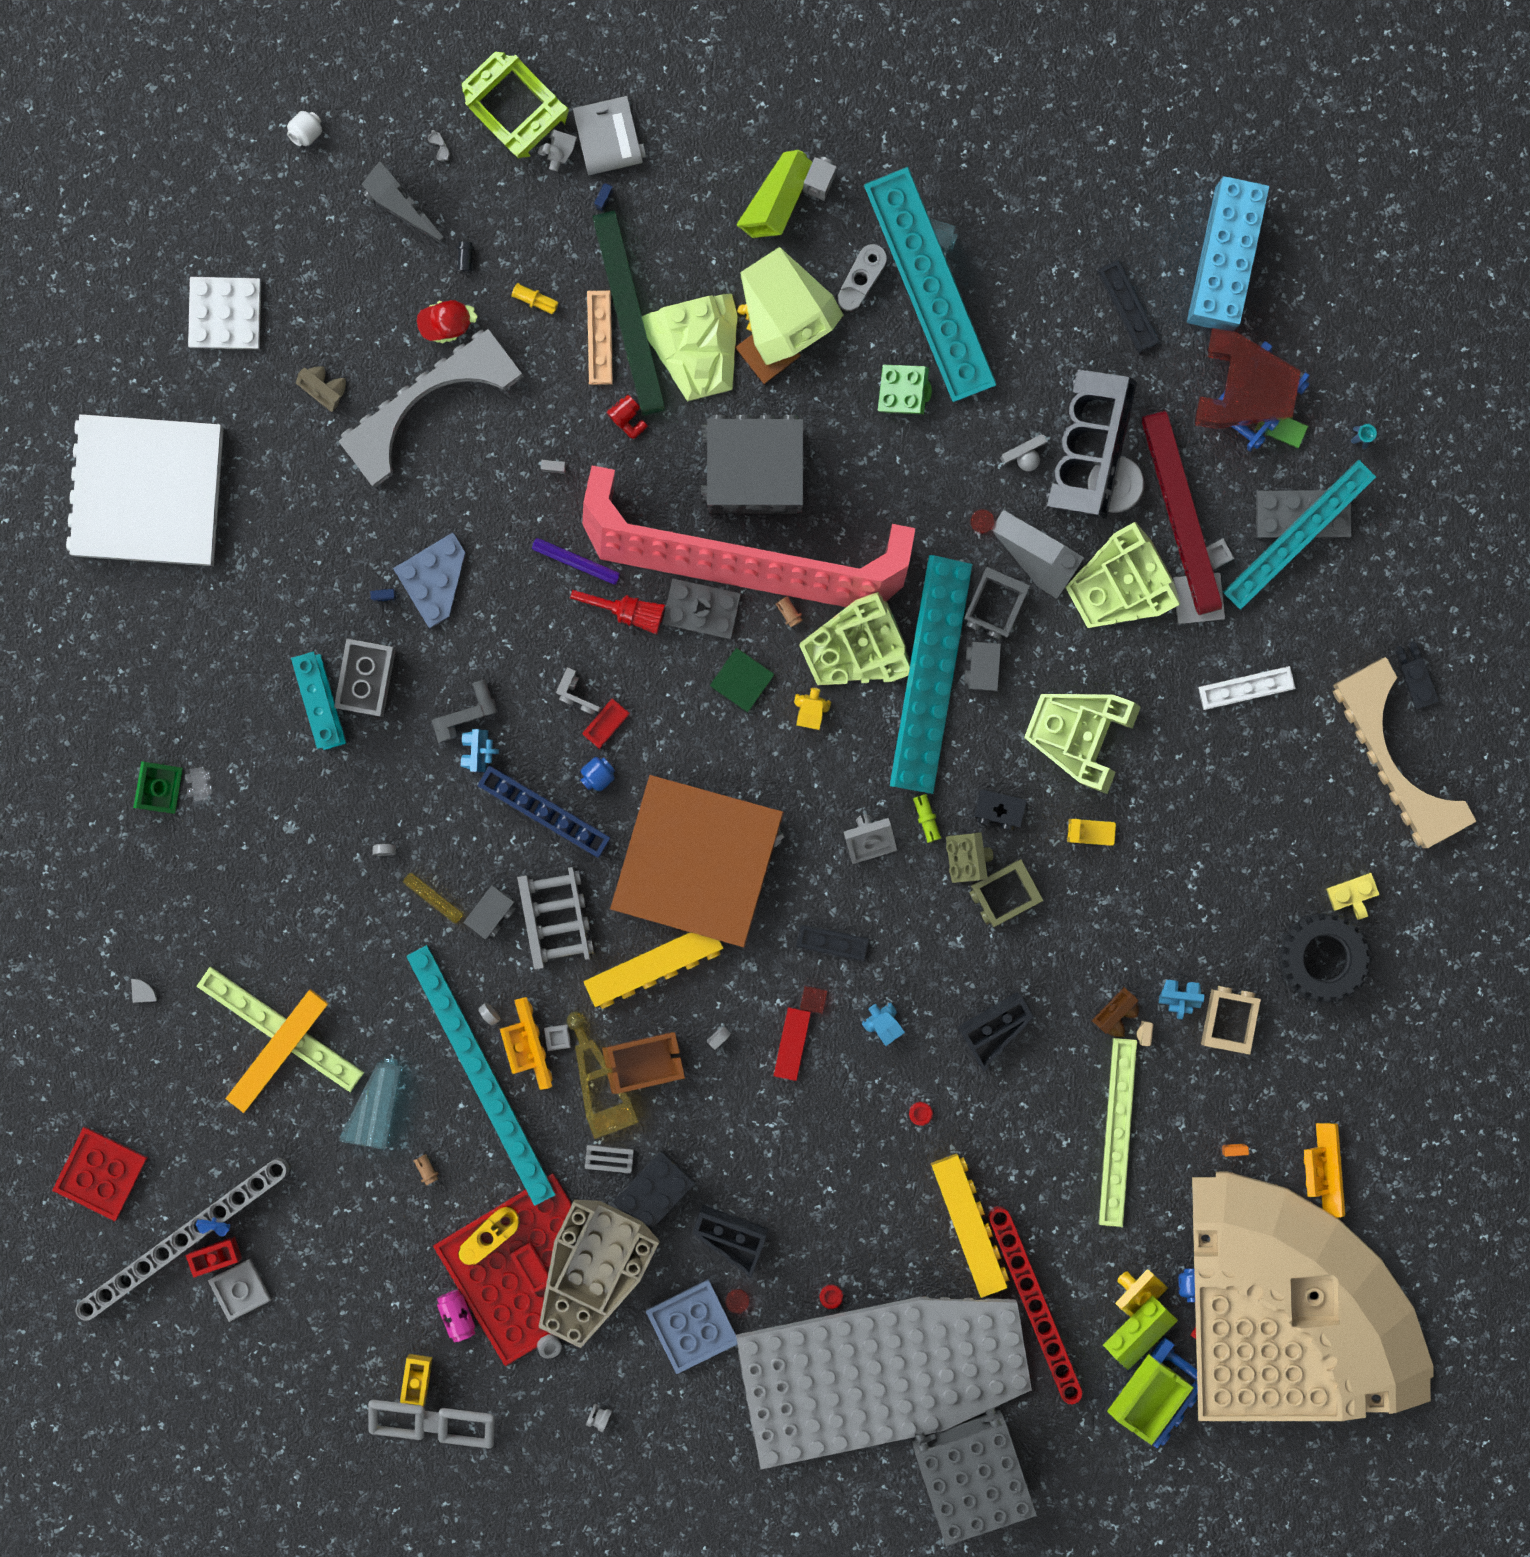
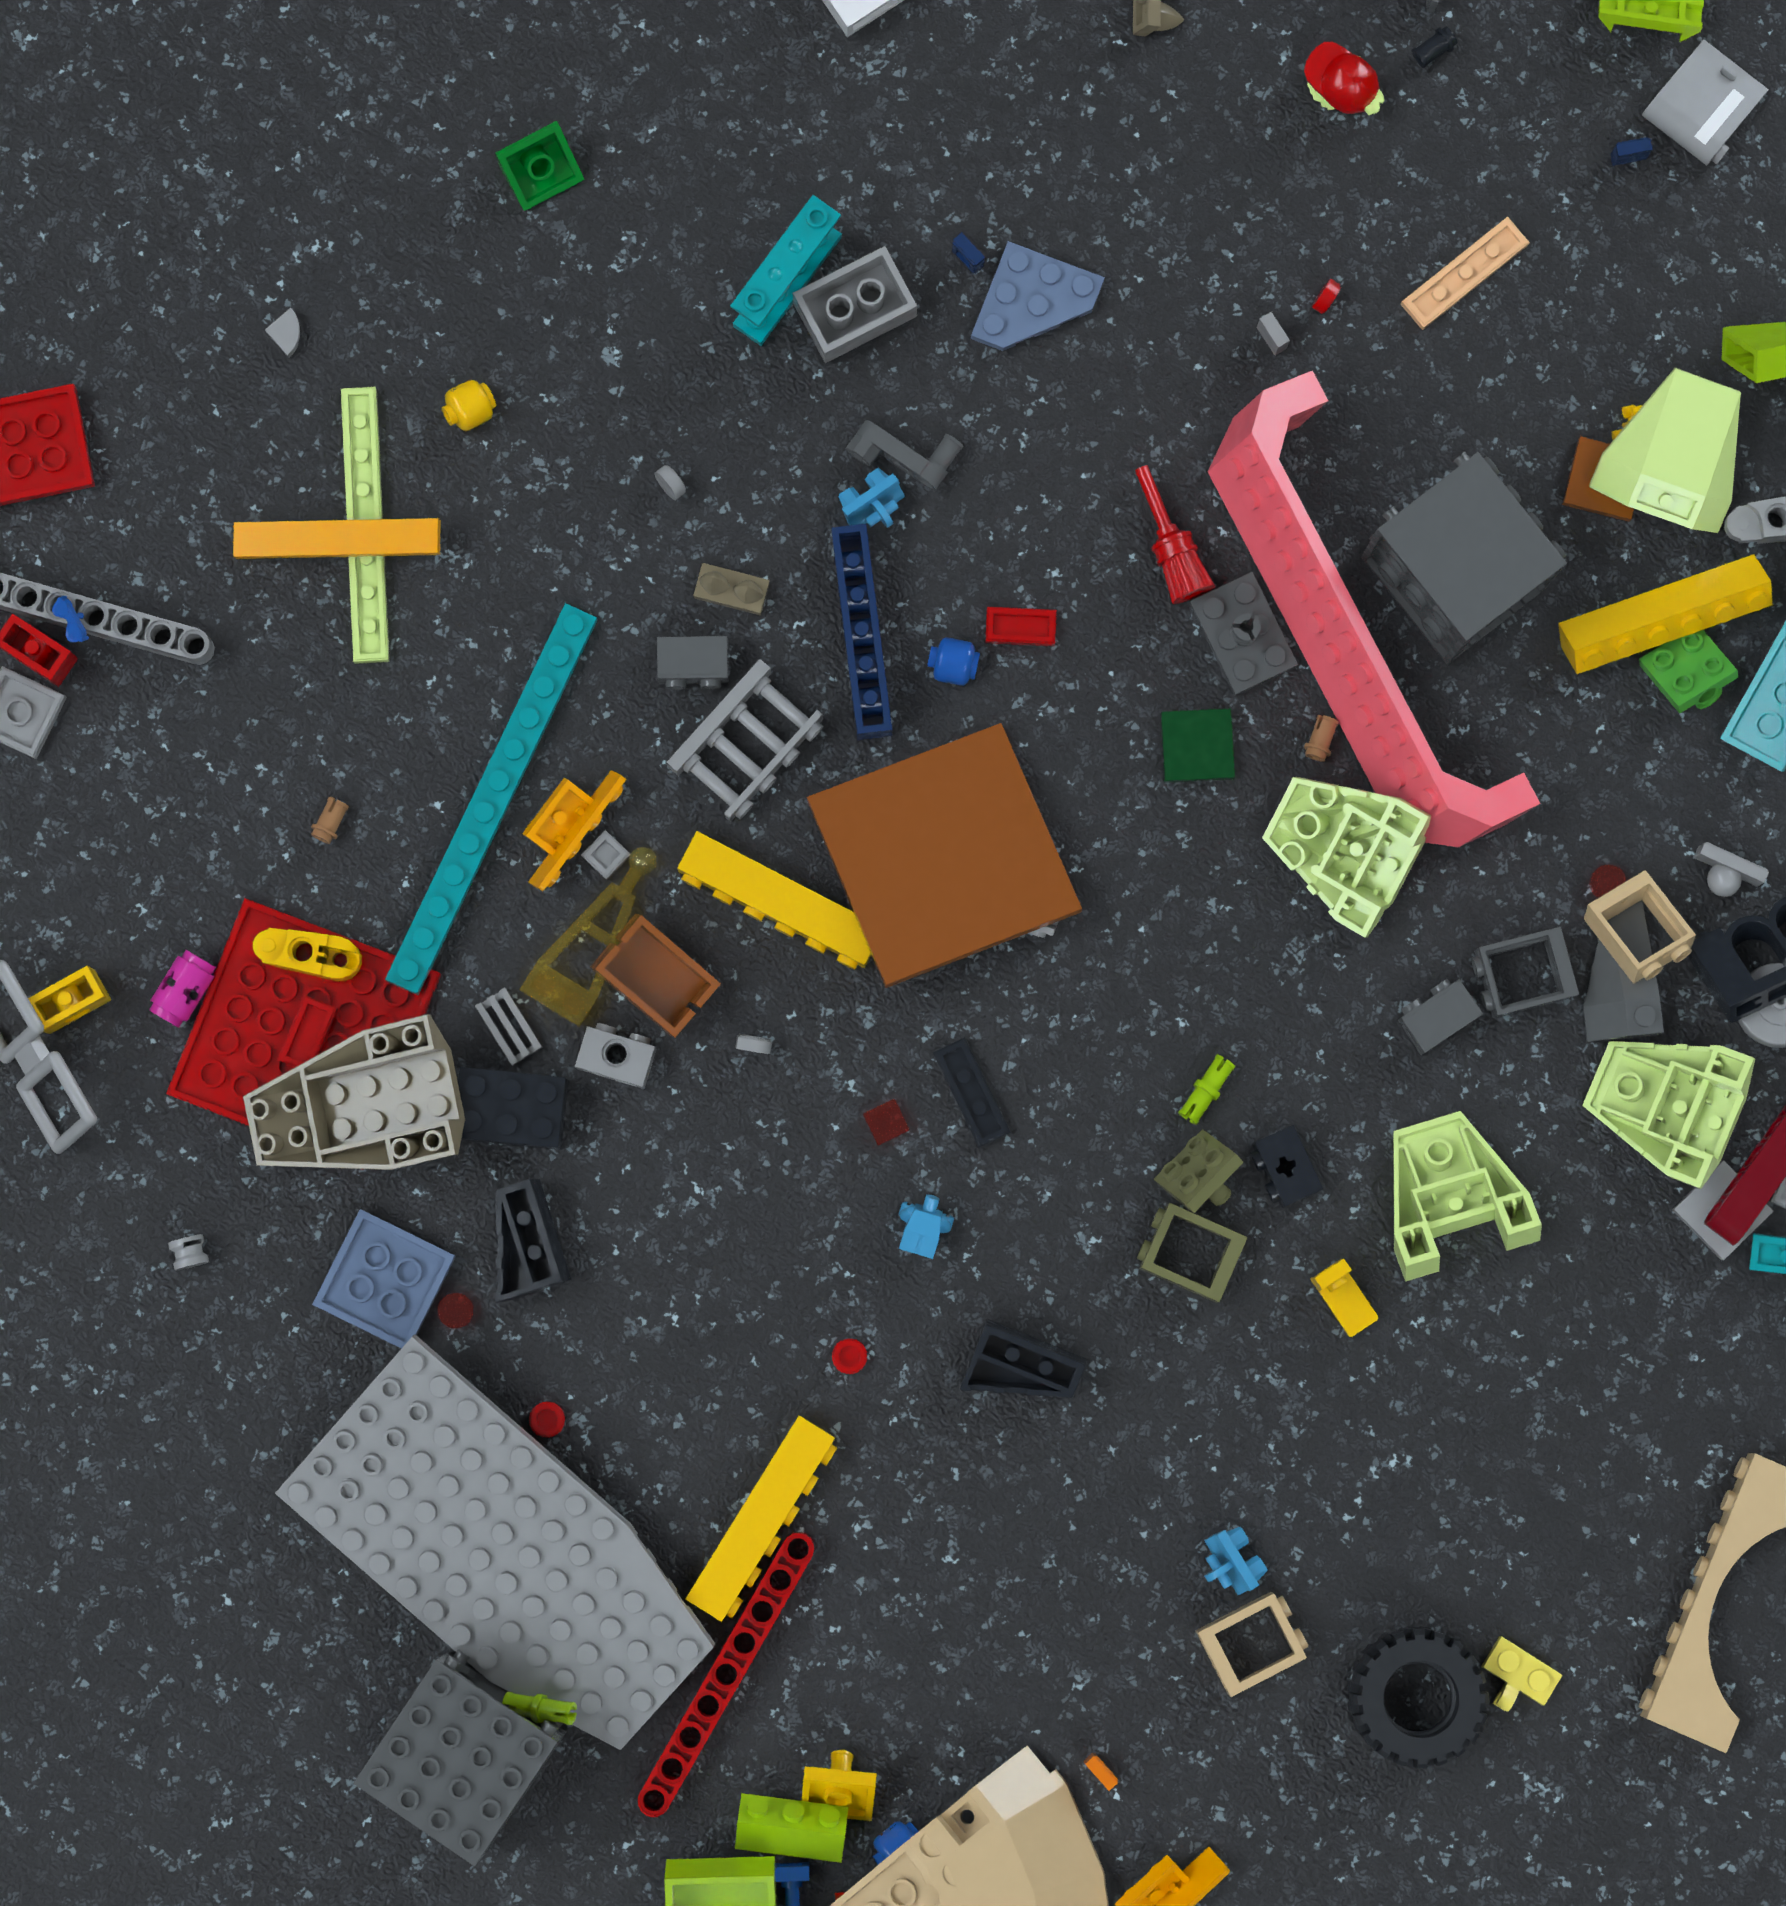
camera: 50 degrees right, 5 degrees down
(199, 779) = (576, 217): clear piece -> none
(259, 925) = (468, 405): none -> yellow head
(373, 439) = (1323, 152): light grey arch -> none
(374, 1112) = (358, 704): clear light blue slope -> none
(432, 898) = (657, 583): clear yellow axle -> none
(466, 861) = (731, 589): none -> dark tan tile
(489, 1014) = (571, 752): light grey tile -> none
(534, 298) = (1450, 163): yellow axle -> none
(549, 1346) = (229, 1127): light grey tile -> none
(555, 422) = (1326, 296): none -> red tile
(559, 149) = (1642, 57): light grey piece -> none
(569, 682) = (1036, 545): light grey bracket -> none
(575, 561) = (1183, 445): dark purple axle -> none
(623, 412) = (1402, 366): red piece -> none
(628, 313) = (1520, 283): clear green beam -> none
(661, 1127) = (594, 1060): none -> light grey brick
(696, 343) = (1548, 388): yellowish green wedge -> none
(792, 1044) = (813, 1137): red tile -> none
(811, 709) = (1228, 851): yellow piece -> none
(865, 378) = (1665, 614): none -> yellow brick
(869, 839) = (1129, 1039): light grey tile -> none
(931, 674) = (1380, 960): teal plate -> none
(978, 1416) = (541, 1708): none -> lime pin
(996, 525) = (1621, 898): none -> tan window
(1110, 1016) = (1141, 1494): reddish brown tile -> none
(1117, 1132) = (1011, 1612): yellowish green tile -> none
(1144, 1033) = (1155, 1551): tan tile -> none
(1246, 688) = (1662, 1351): white tile -> none

